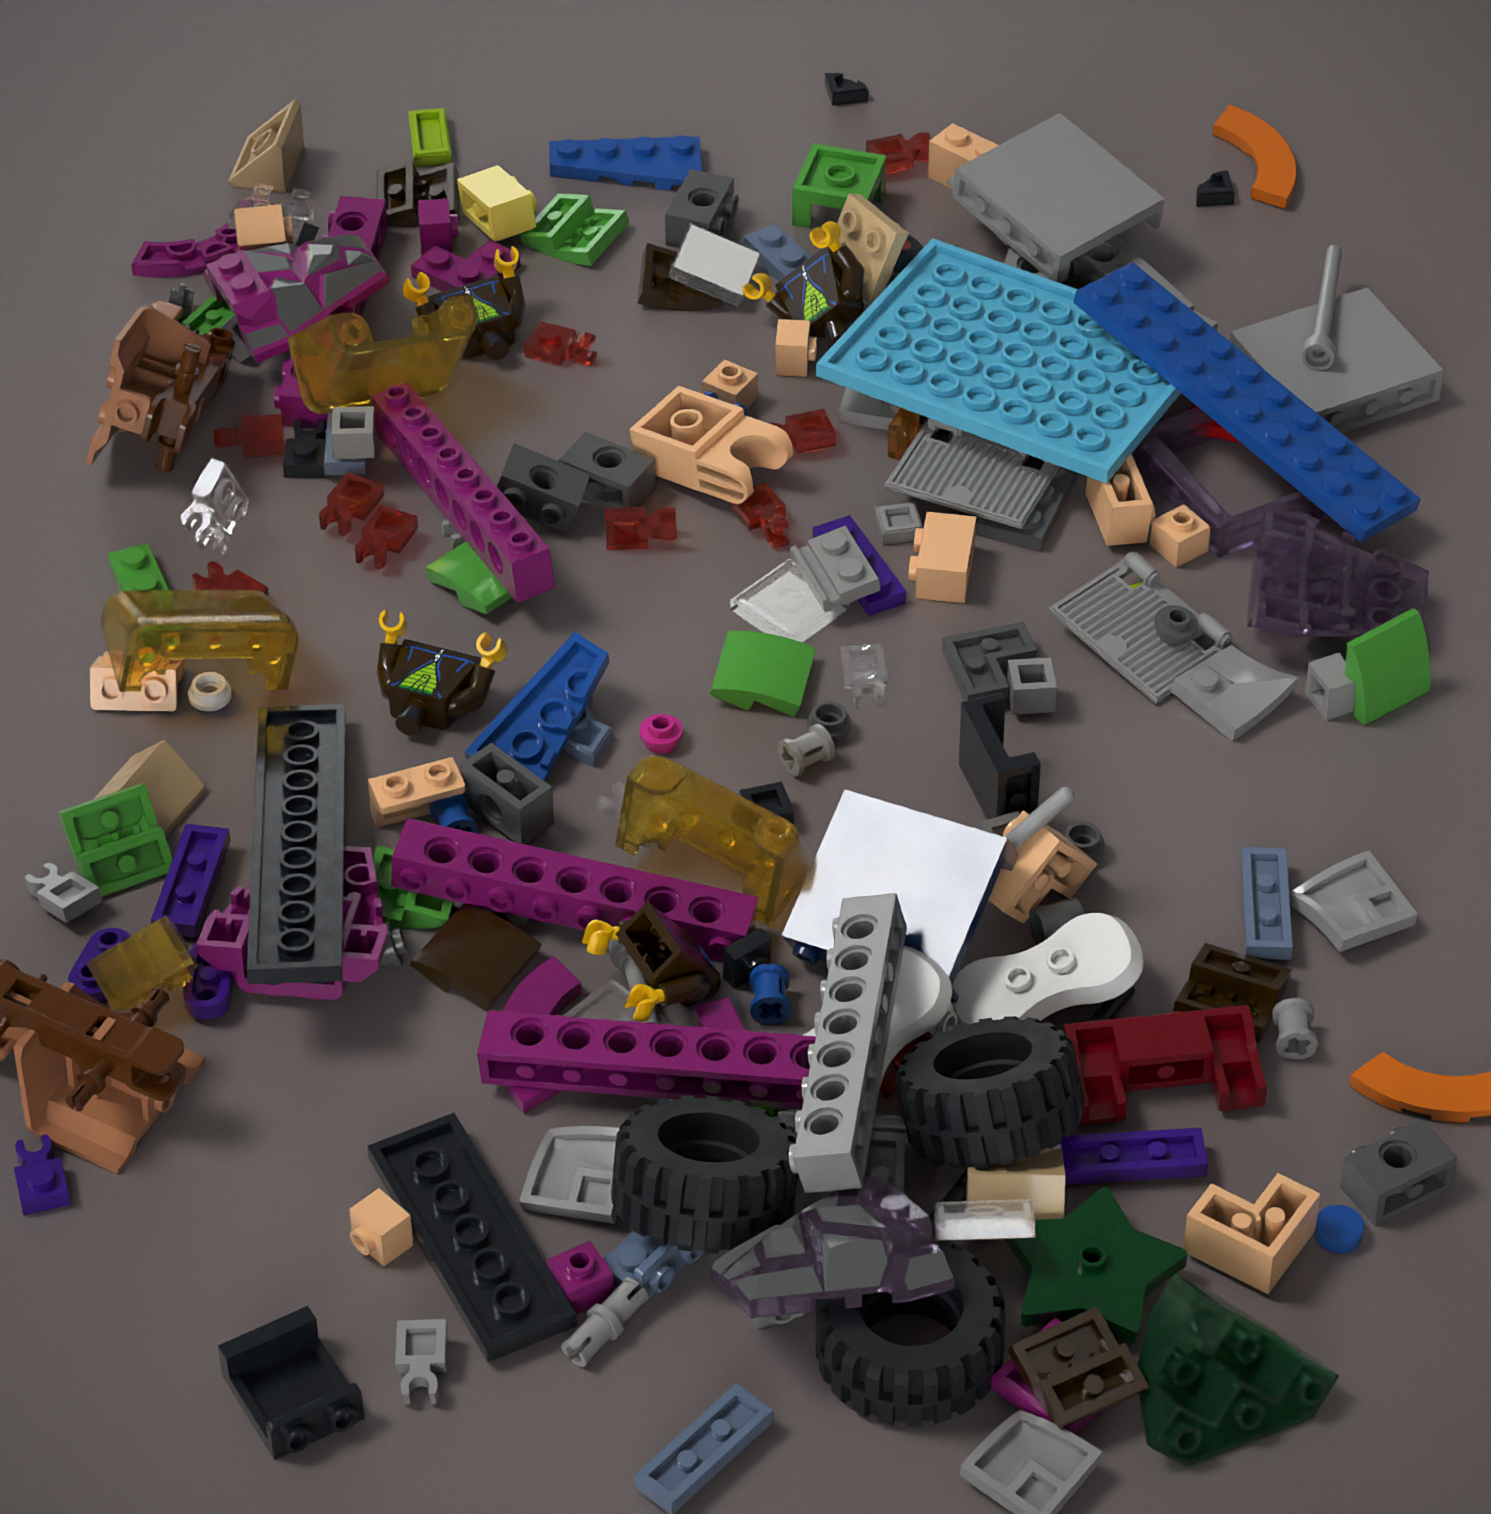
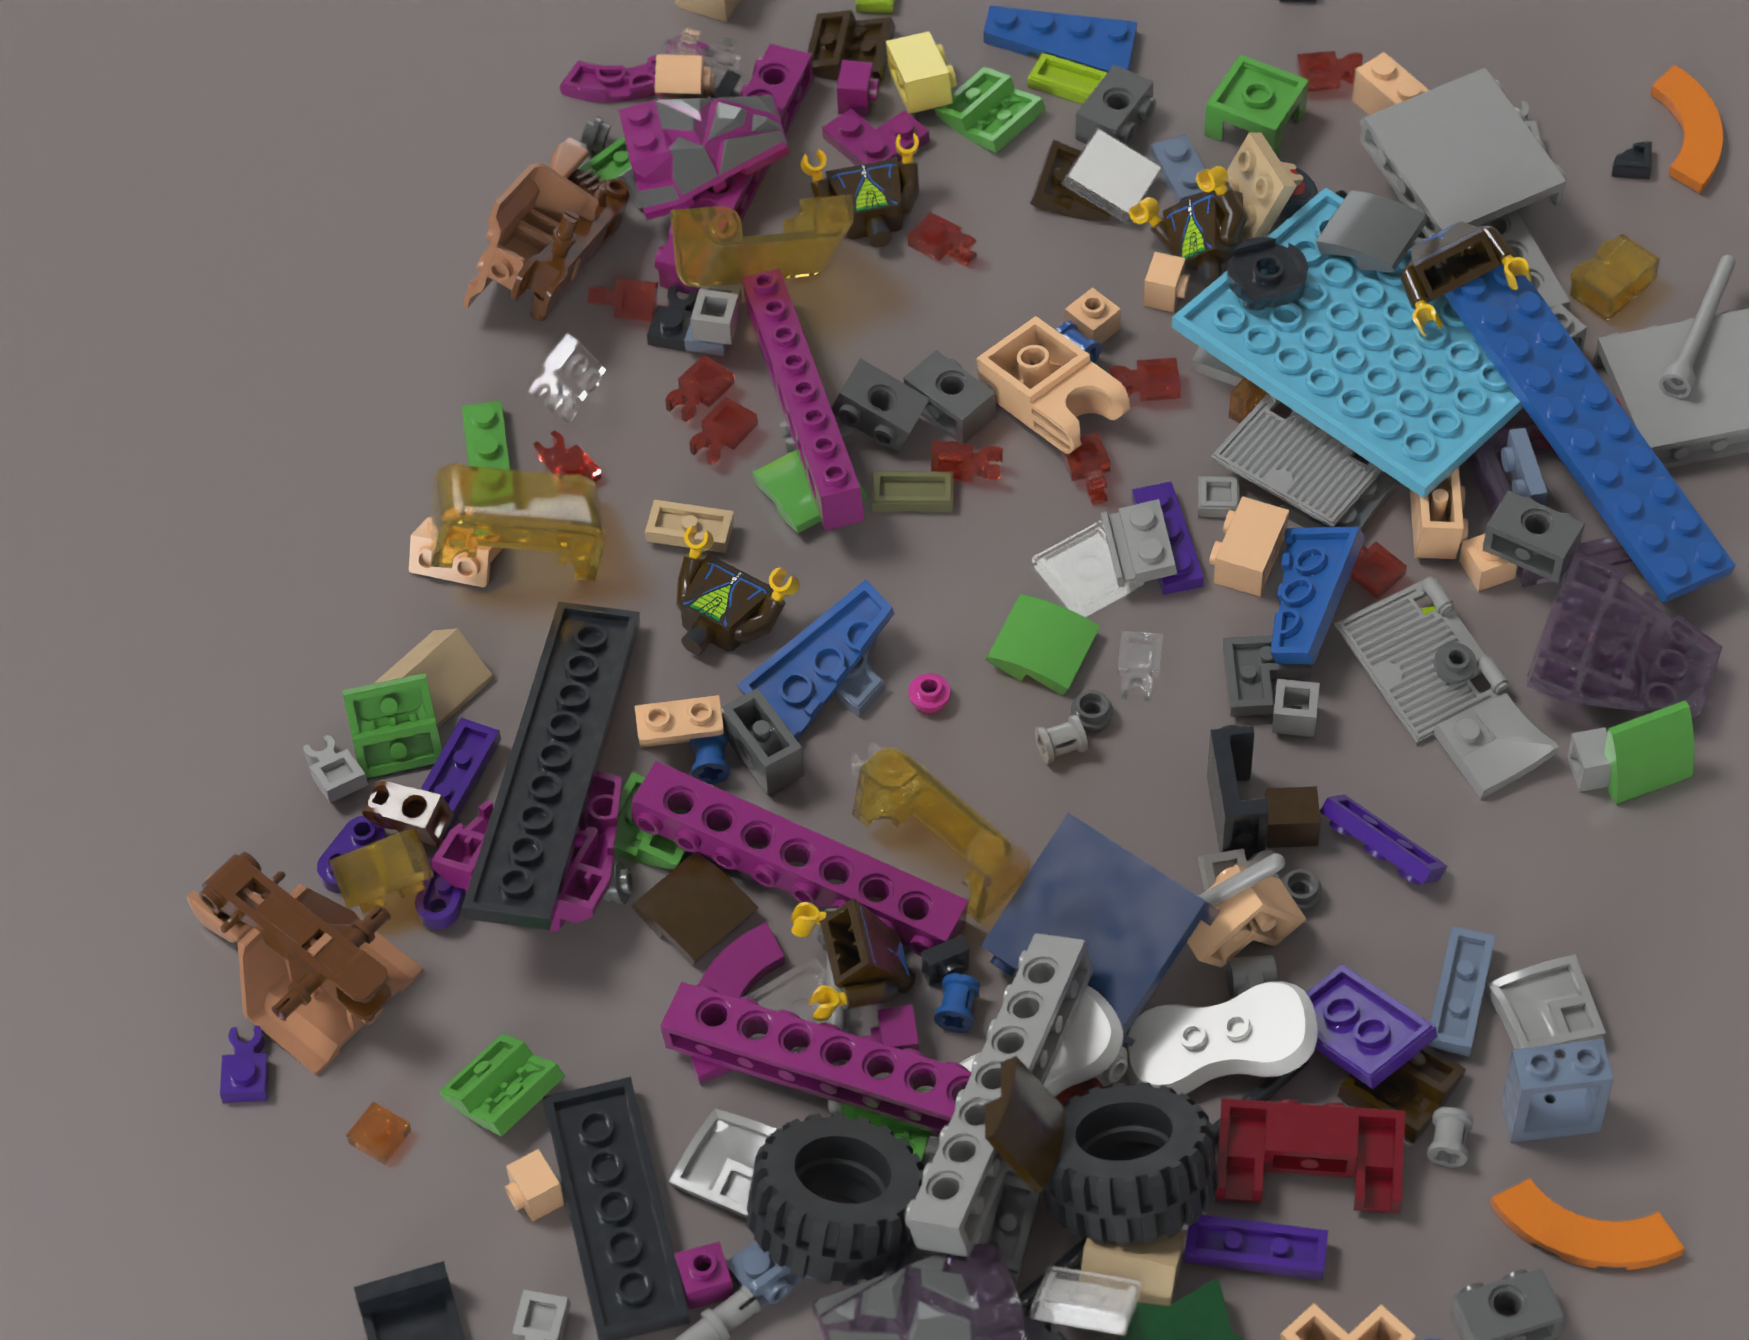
camera: 15 degrees right, 10 degrees up
(143, 903) = (408, 808): none -> reddish brown leg
(200, 1211) = (378, 1132): none -> clear orange plate
(209, 692) = (519, 566): white plate -> none
(319, 1144) = (501, 1084): none -> bright green slope
(360, 622) = (671, 519): none -> tan plate
(593, 563) = (912, 491): none -> olive tile
(640, 194) = (1064, 78): none -> lime tile
(771, 797) = (1007, 795): black plate -> none
(889, 1054) = (1025, 1124): none -> dark brown slope
(900, 312) = (1262, 290): none -> black plate
(990, 261) = (1372, 231): none -> dark grey slope
(1018, 579) = (1313, 582): none -> blue wing
(1063, 769) = (1293, 817): none -> dark brown panel
(1065, 557) = (1377, 569): none -> clear red plate
(1080, 271) = (1453, 260): none -> dark brown torso
(1150, 787) = (1382, 840): none -> dark purple plate
(1188, 946) = (1365, 1026): none -> dark purple tile
(1198, 449) = (1522, 463): none -> sand blue plate
(1222, 499) = (1533, 536): none -> dark grey brick
(1227, 283) = (1613, 276): none -> clear yellow brick
(1398, 990) = (1573, 1085): none -> sand blue window

